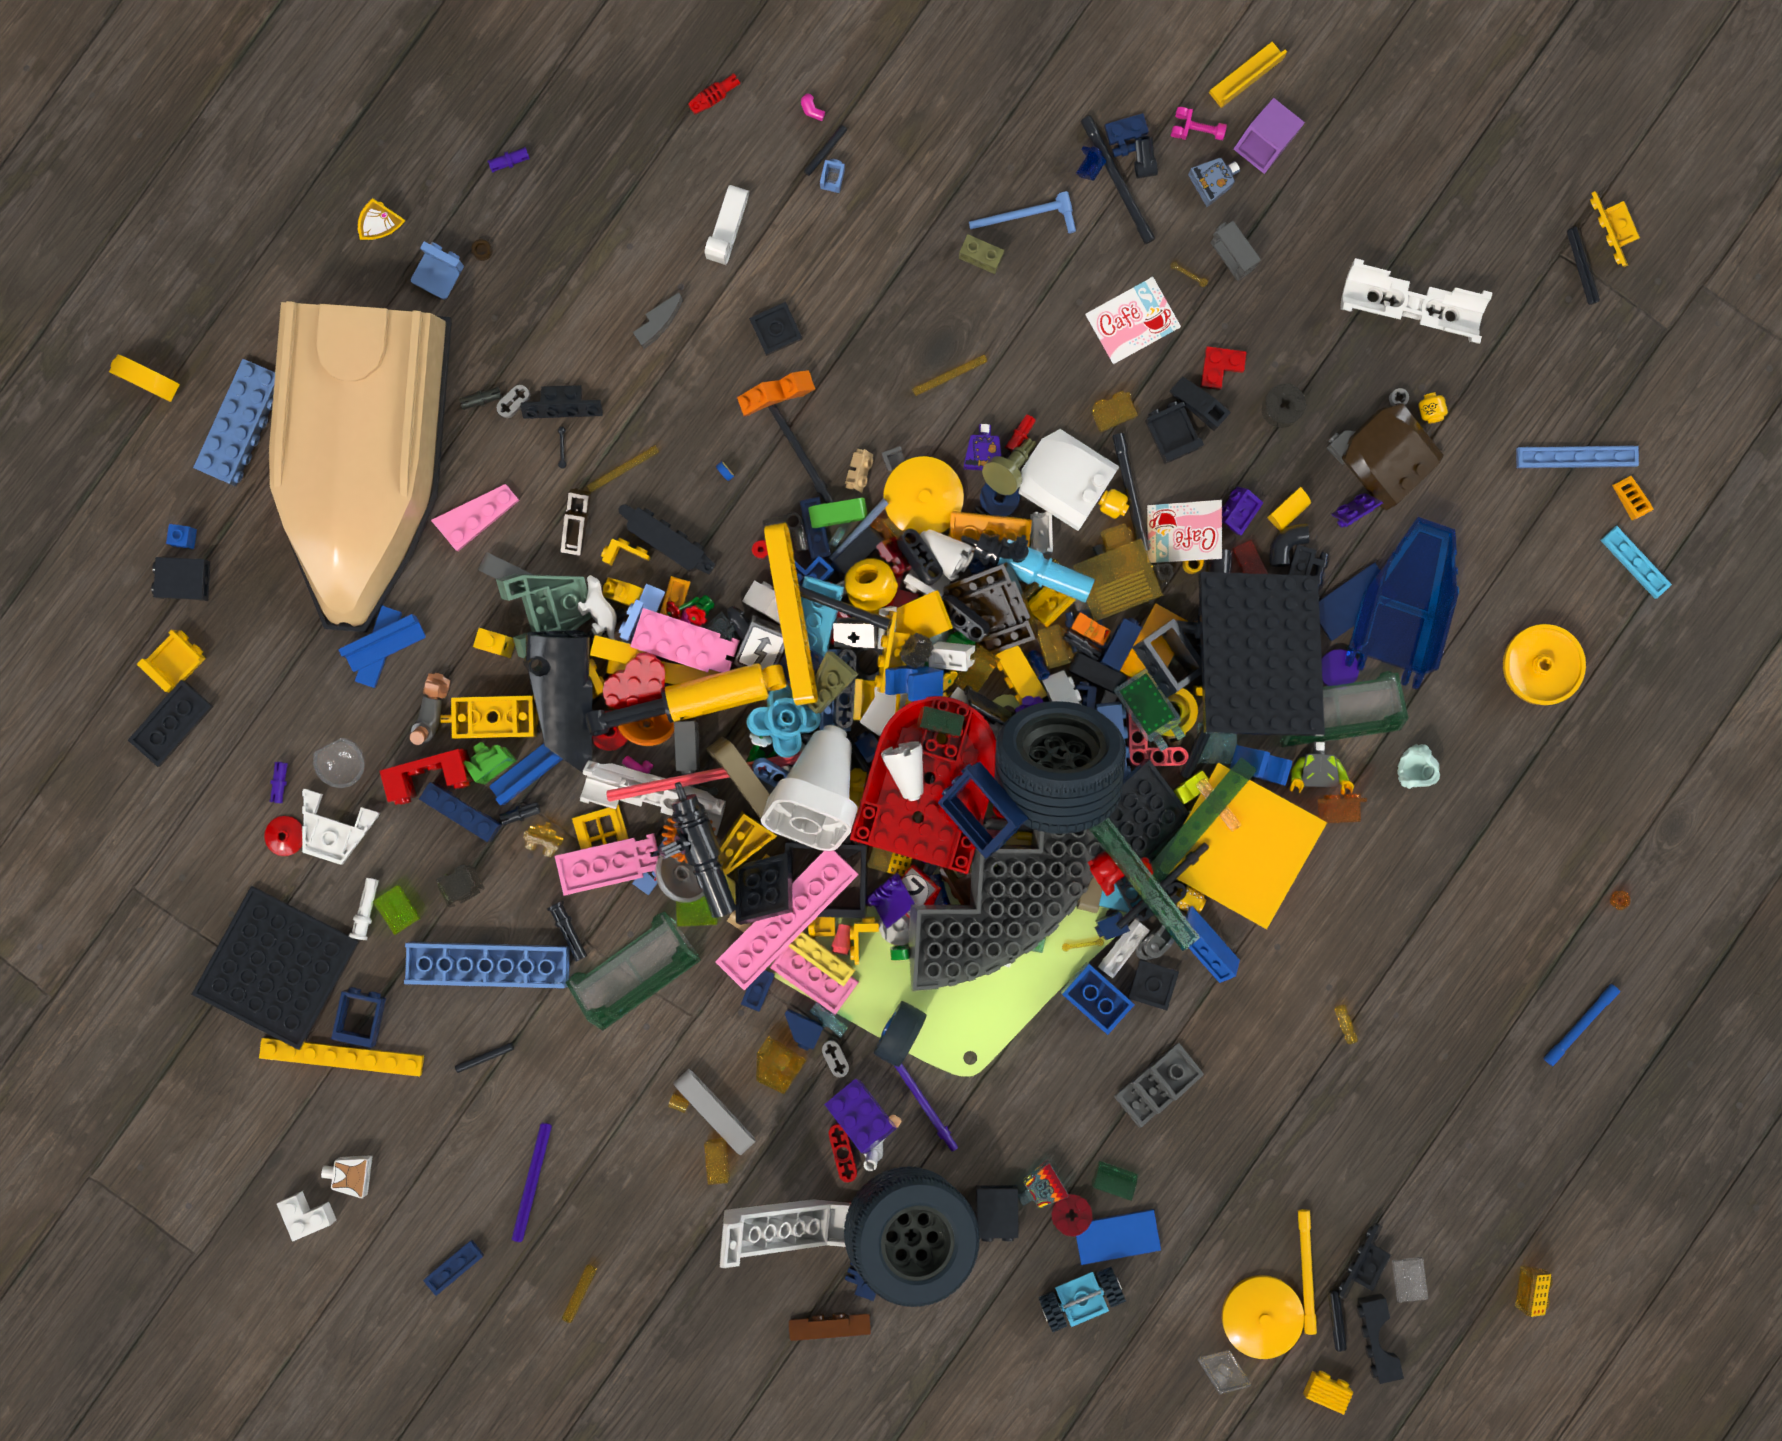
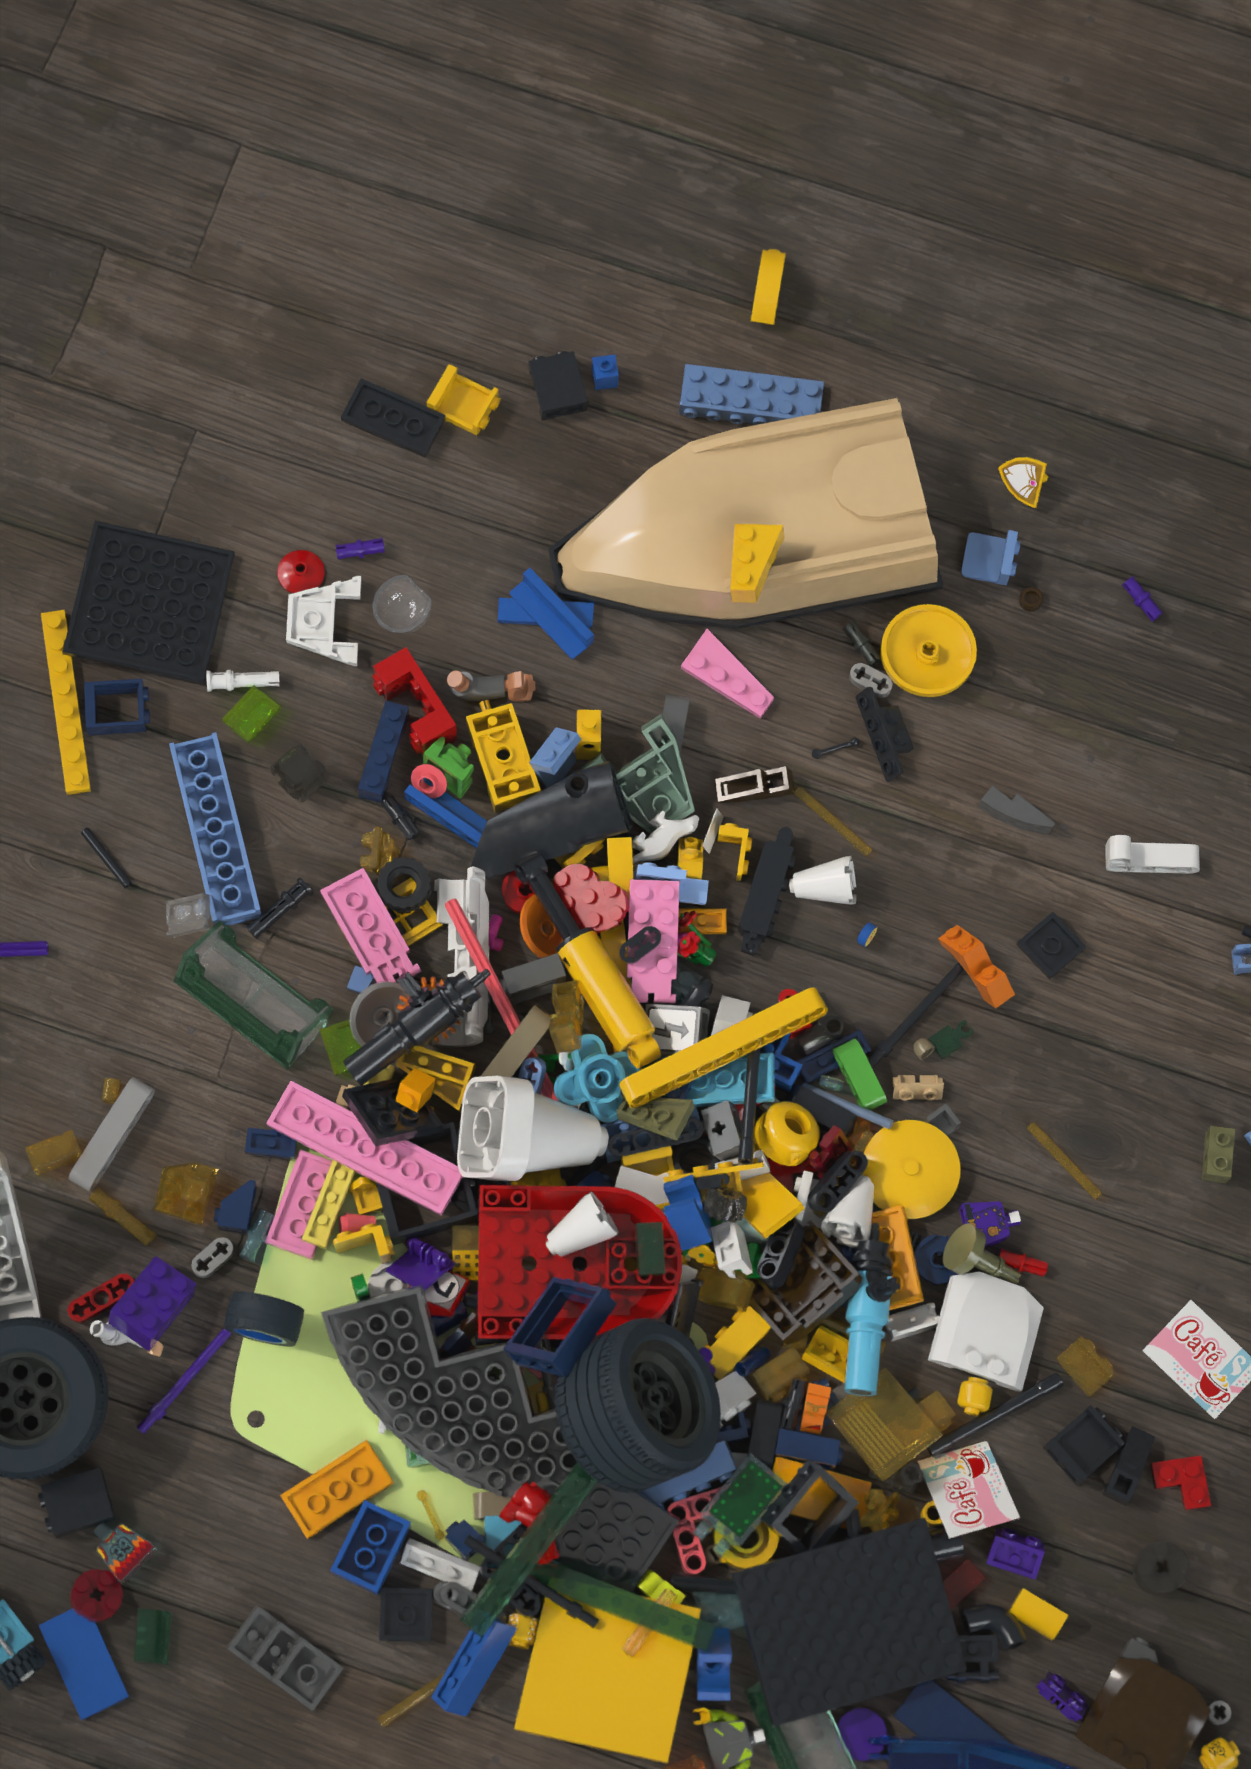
camera: 70 degrees right, 15 degrees down
(389, 465) = (752, 558): none -> yellow wedge
(492, 778) = (435, 775): none -> coral piece
(503, 346) = (928, 650): none -> yellow dish
(507, 675) = (555, 756): none -> medium blue bracket
(553, 1006) = (188, 915): none -> clear plate
(567, 838) = (404, 866): none -> black tyre
(603, 567) = (712, 831): none -> white sticker
(673, 489) = (826, 882): none -> white cone
(682, 656) = (644, 949): none -> black beam
(738, 732) = (567, 1023): none -> clear yellow arch
(752, 866) = (415, 1090): none -> light orange brick
(783, 1120) = (121, 1216): none -> clear yellow pin
(828, 434) = (948, 1040): none -> clear green plate
(829, 456) = (923, 1048): none -> dark tan hinge
(896, 655) = (712, 1181): none -> black piece
(961, 889) = (456, 1343): none -> dark blue tile
(1042, 1010) = (337, 1489): none -> light orange tile
(1179, 602) = (880, 1509): none -> clear yellow hips
(1217, 998) = (409, 1702): none -> clear yellow bar

